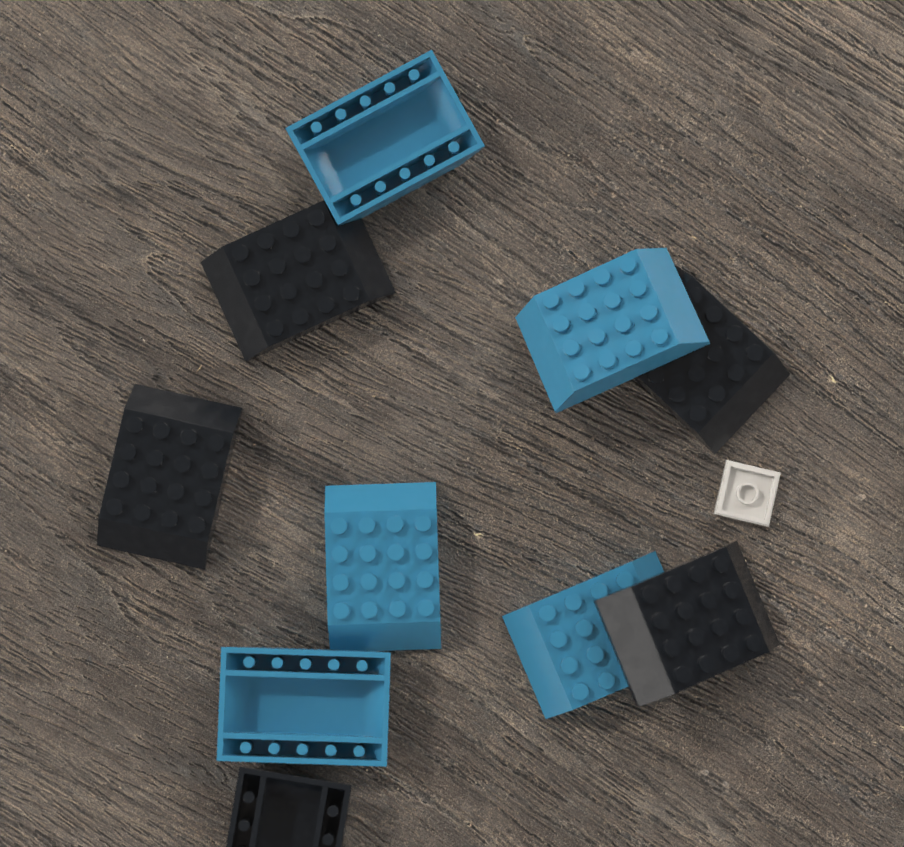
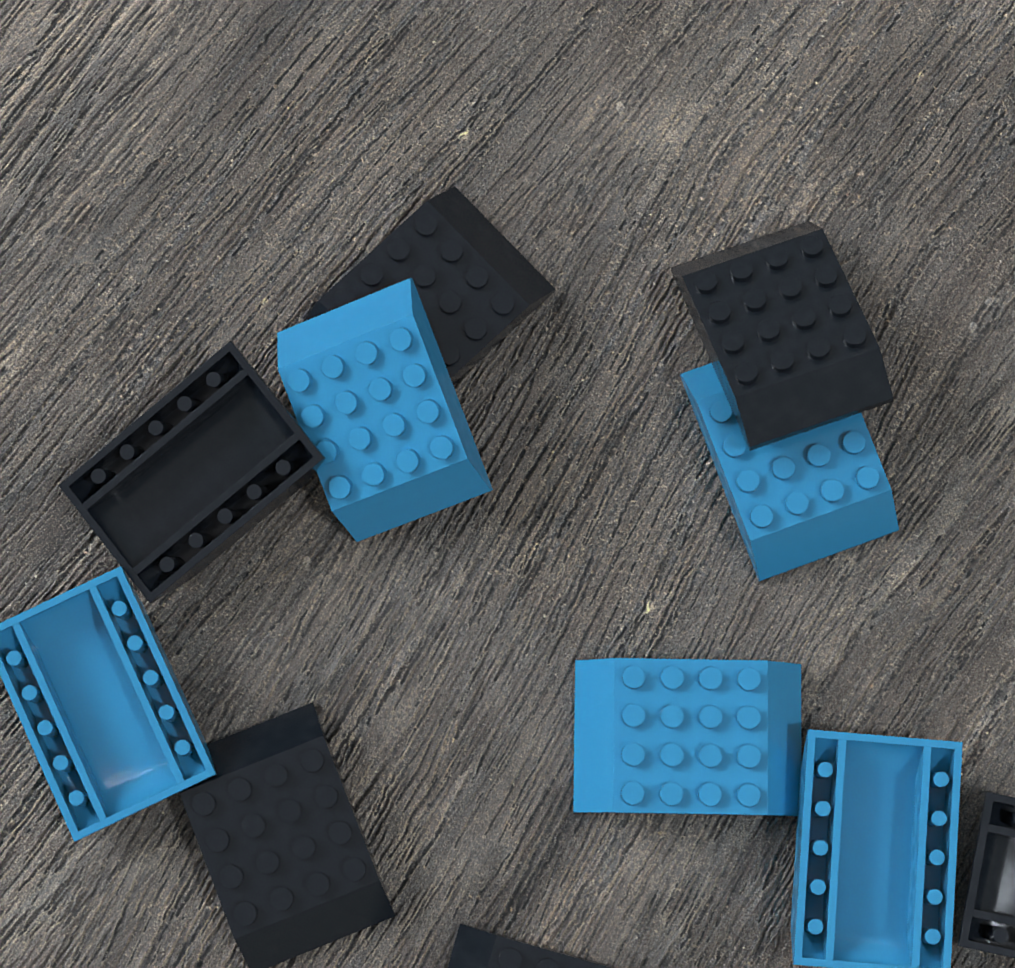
camera: 90 degrees left, 5 degrees down
(555, 193) = (193, 474): none -> black slope
(747, 493) = (609, 250): white tile -> none

